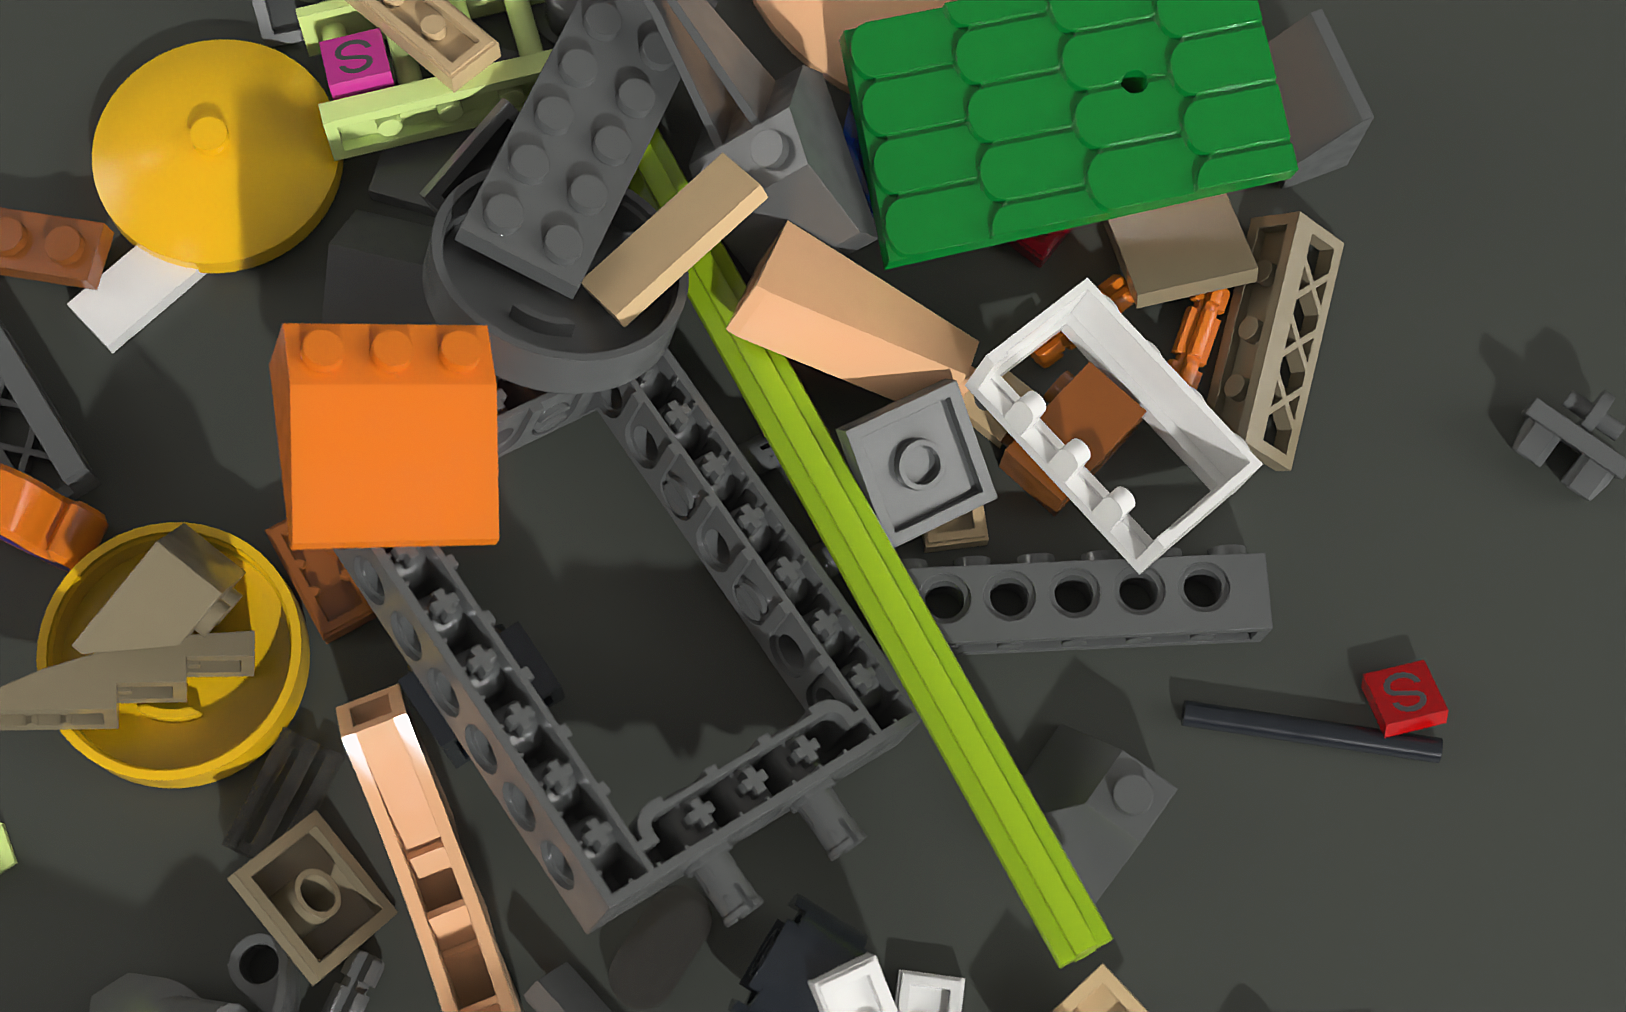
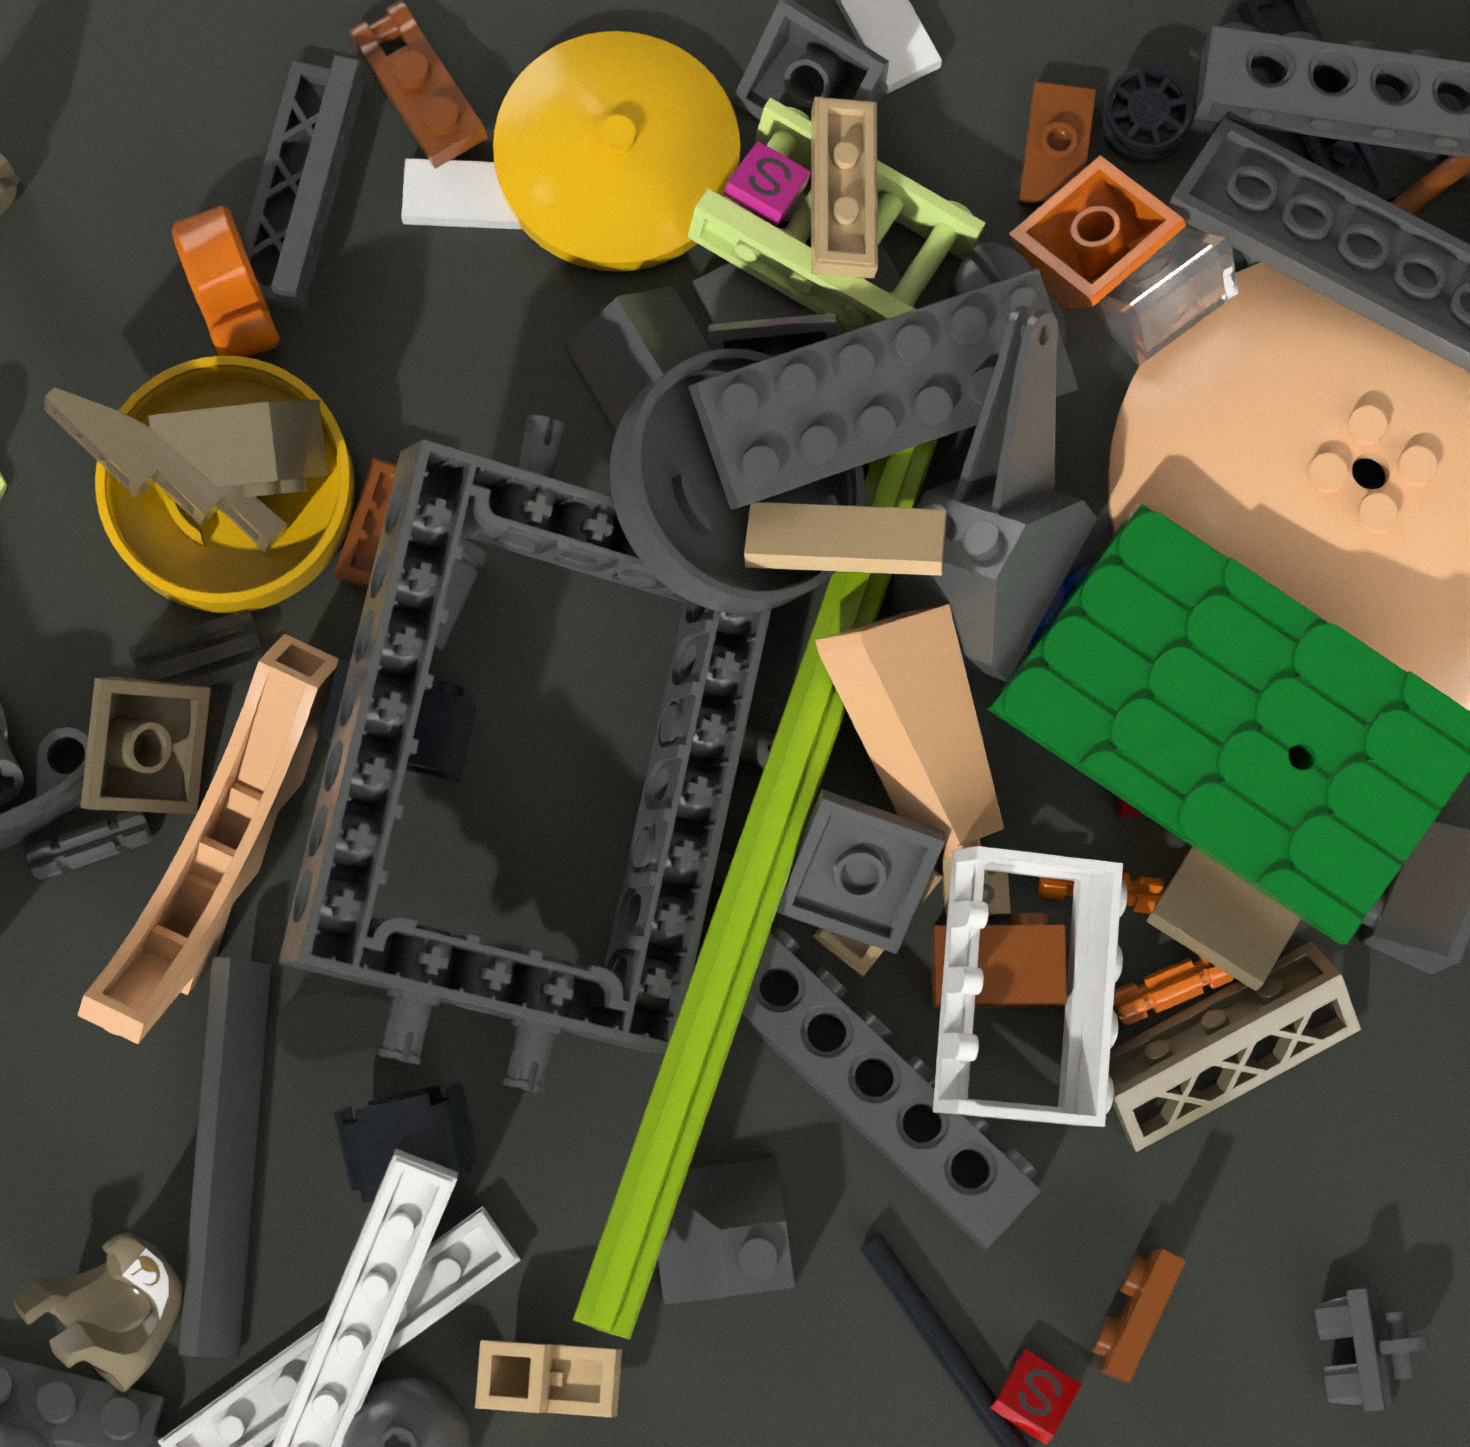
camera: 50 degrees right, 5 degrees up
(387, 435) = (485, 486): orange slope -> none
(1420, 584) = (1148, 1288): none -> dark orange plate

